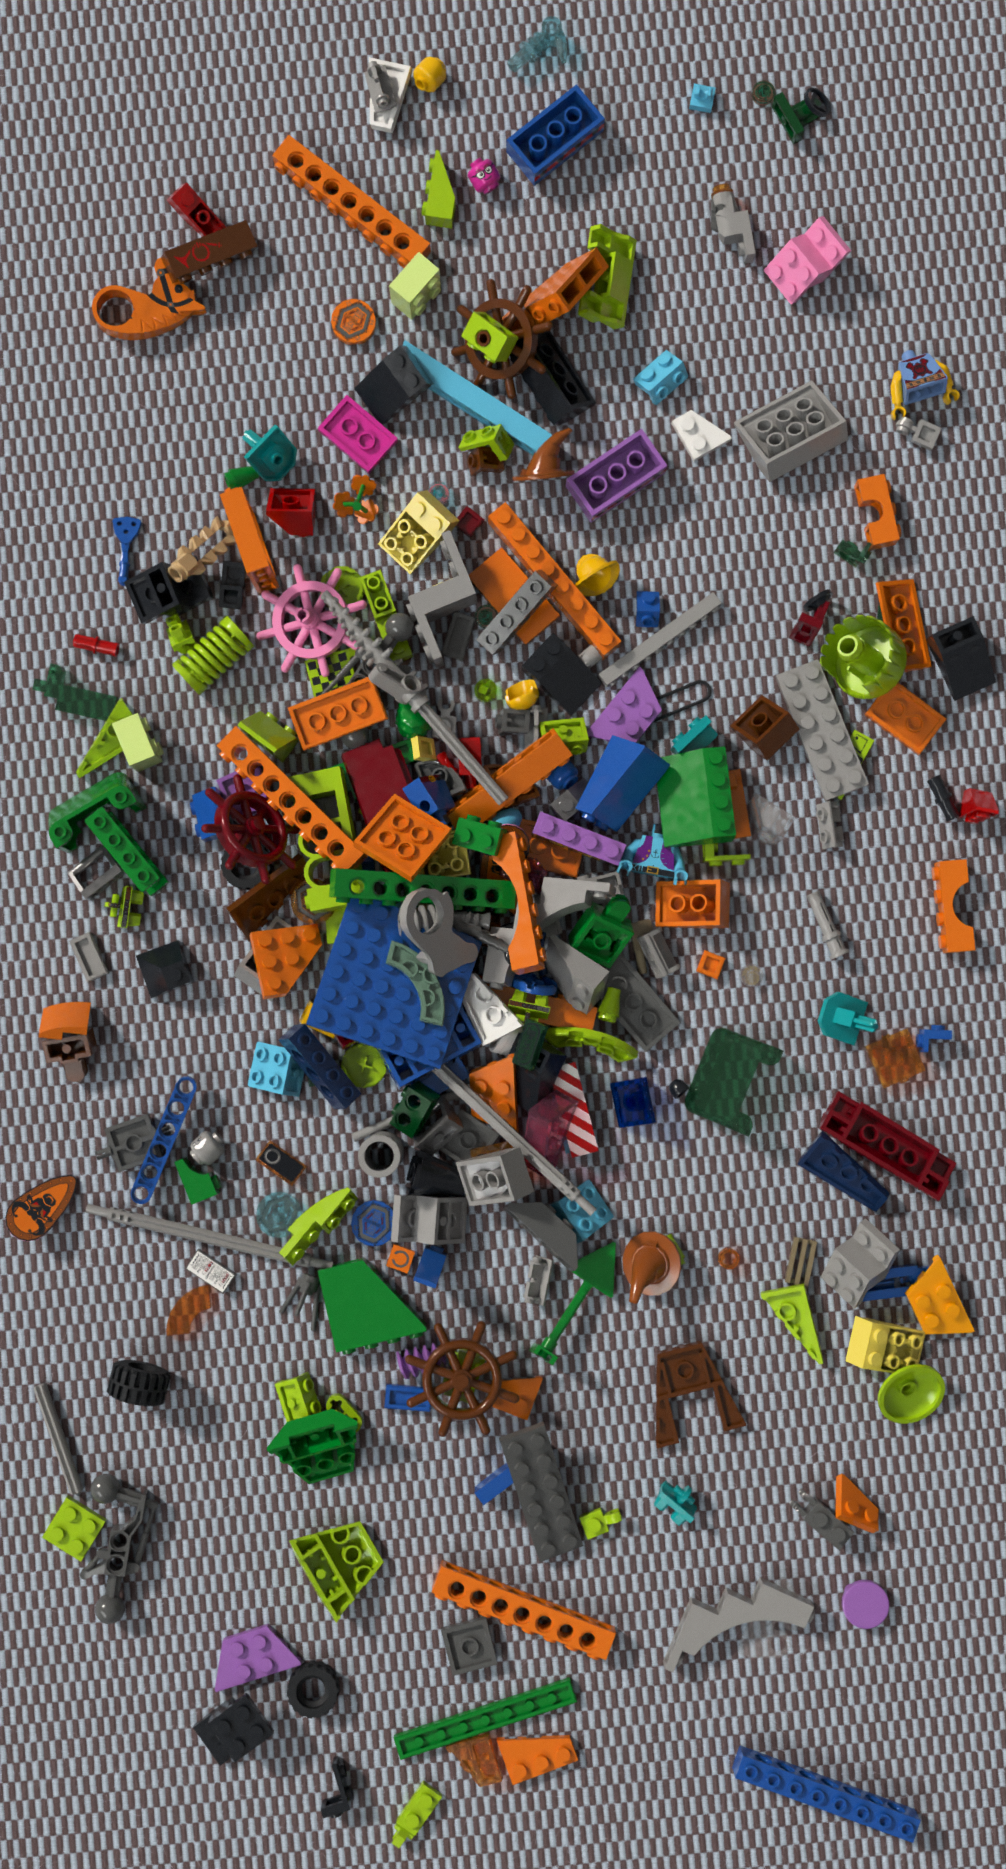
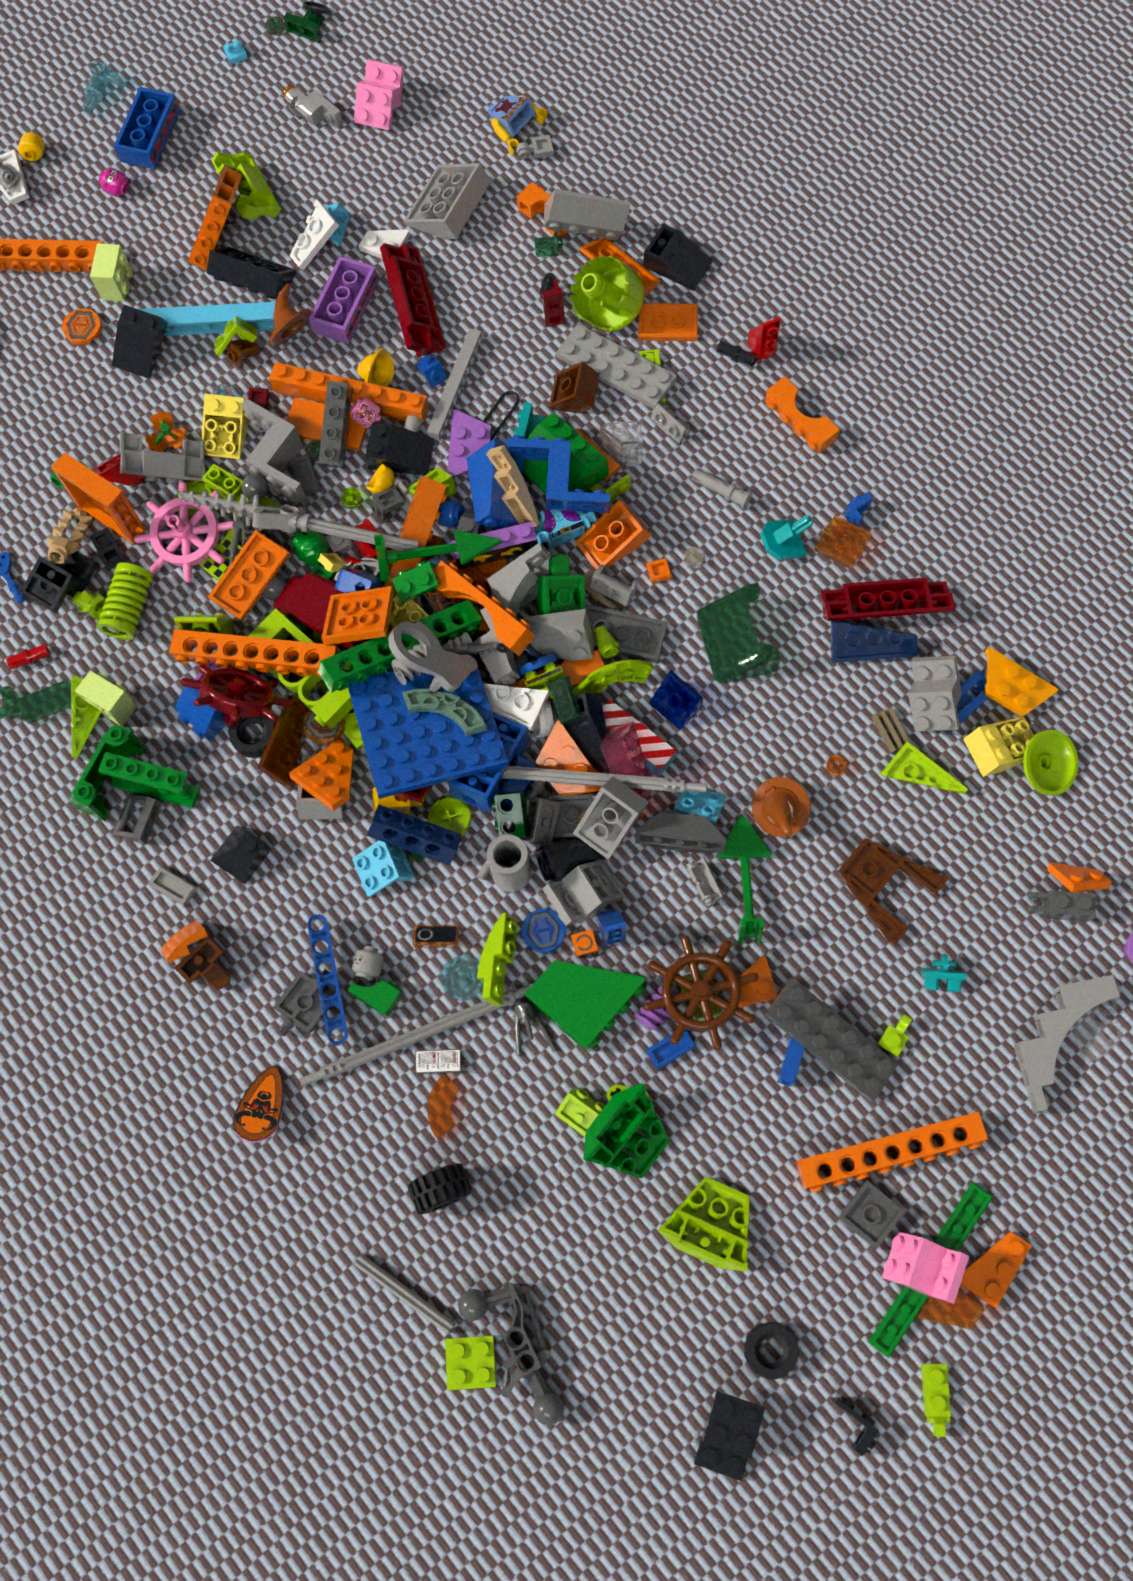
camera: 30 degrees left, 15 degrees down
(128, 897) = (174, 827): lime hips -> none
(253, 1656) = (700, 1362): medium lavender wing -> none
(270, 455) = (78, 441): teal piece -> none
(331, 538) = (155, 465): none -> light grey bracket
(357, 434) = (134, 392): dark pink plate -> none
(441, 203) = (91, 211): lime slope -> none
(478, 1720) = (925, 1267): none -> bright pink bracket
(498, 341) = (188, 261): reddish brown brick -> none
(551, 832) = (467, 545): none -> green piece
(553, 617) = (365, 412): none -> bright pink head
(631, 805) = (516, 493): none -> tan slope
(637, 384) = (318, 231): none -> white wing
(678, 824) = (558, 457): none -> blue bracket
(678, 1088) = (702, 670): black hinge -> none
(682, 520) = (412, 299): none -> dark red slope
(905, 554) = (585, 214): none -> light grey slope

